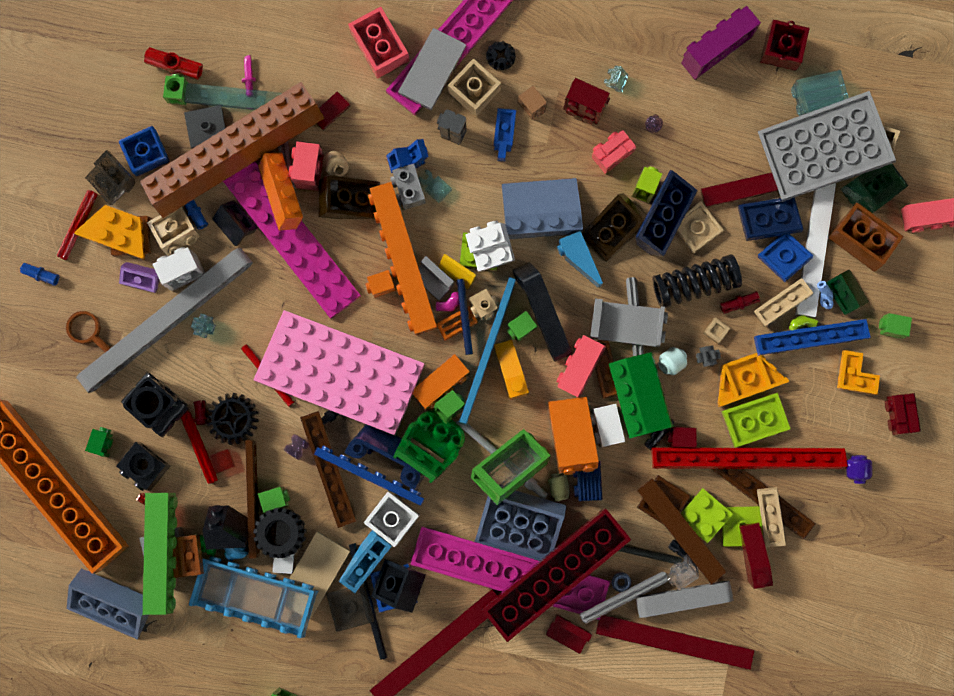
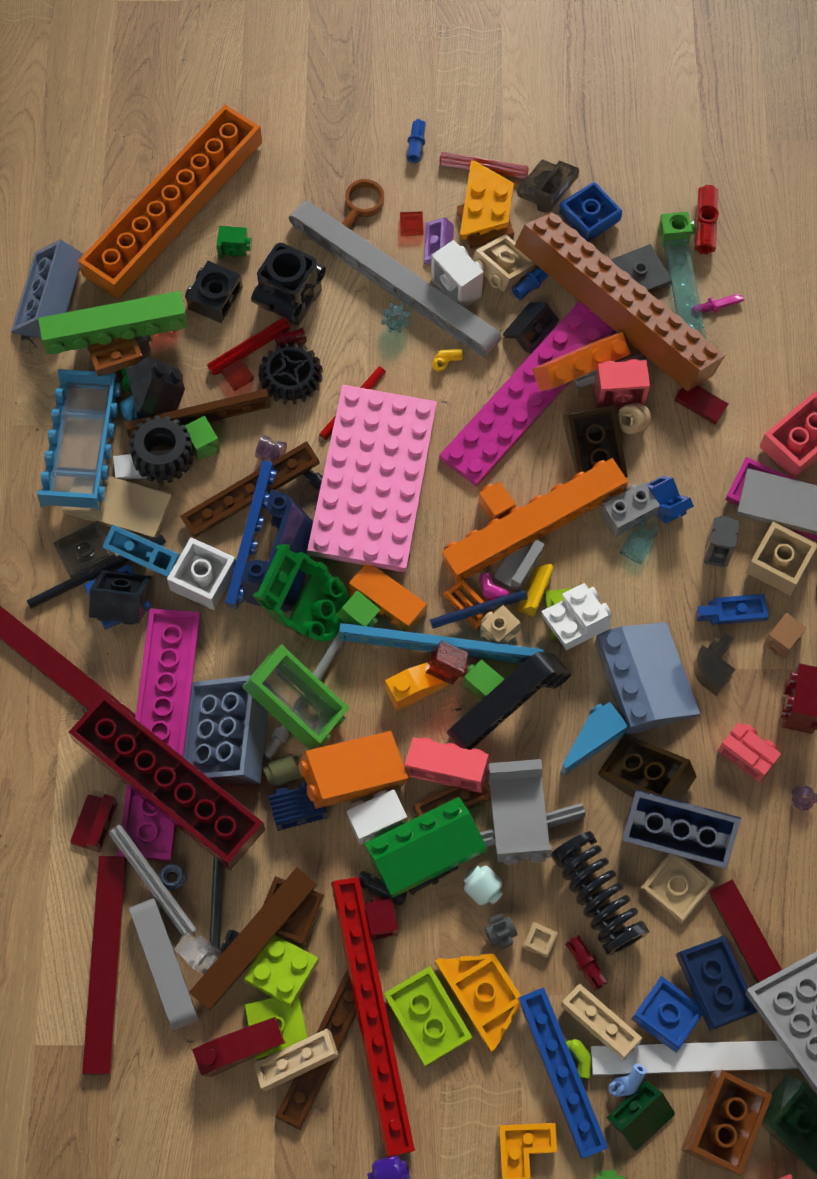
camera: 75 degrees right, 15 degrees down
(117, 294) = (411, 223): none -> clear red tile
(245, 295) = (444, 357): none -> yellow arm
(505, 349) = (447, 662): none -> clear red brick
(543, 162) = (709, 667): none -> clear smoke brick
(647, 184) = (717, 795): lime brick -> none

